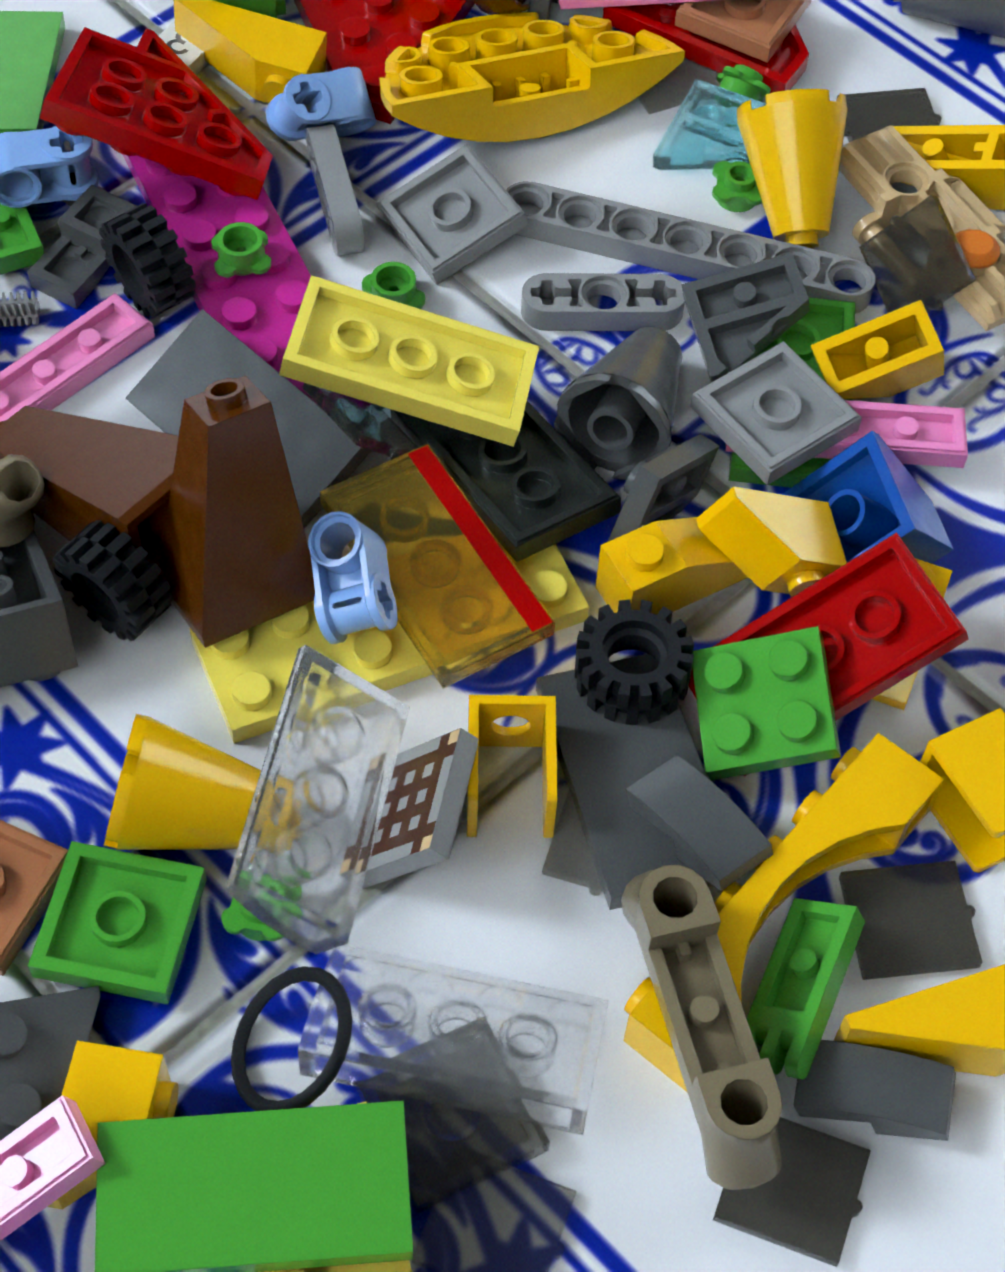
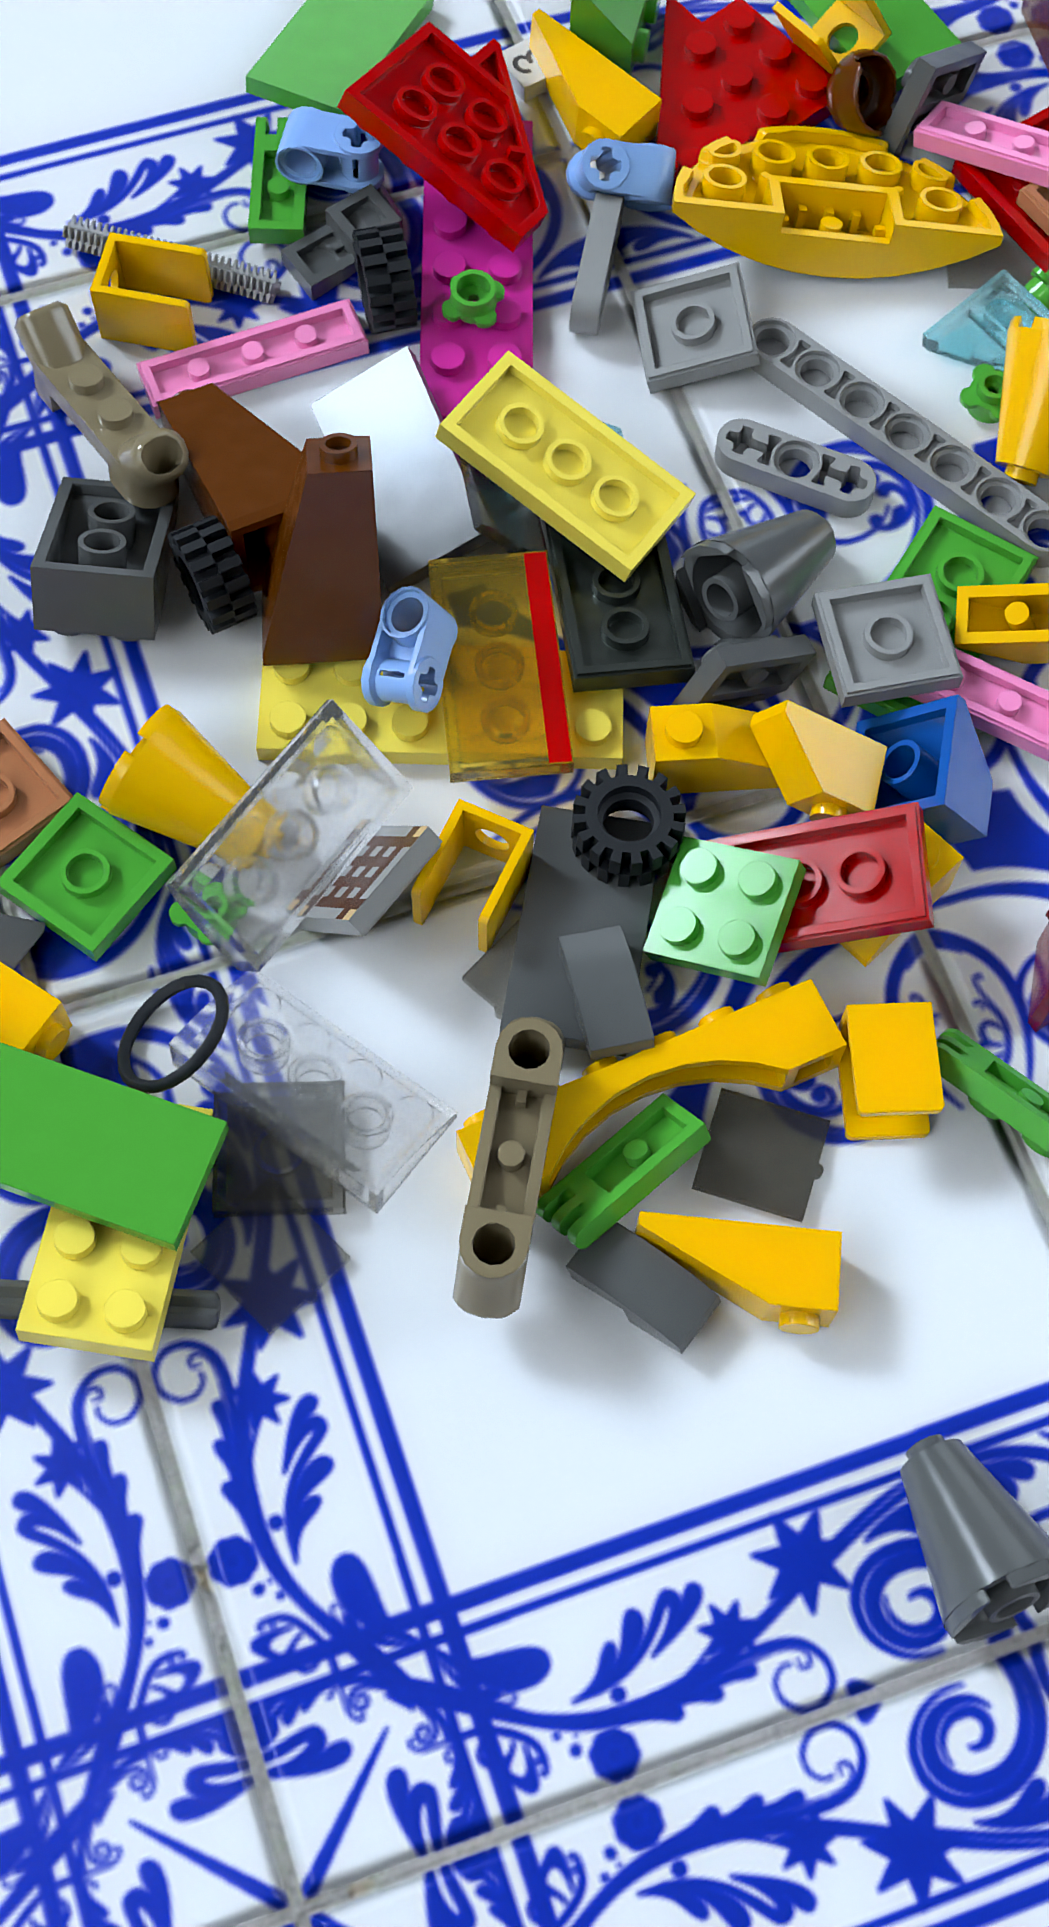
camera: 25 degrees right, 10 degrees up
(394, 282) = (606, 373): bright green plate -> none
(744, 311) = (916, 528): dark grey wing -> none
(808, 1200) = (539, 1342): clear smoke piece -> none

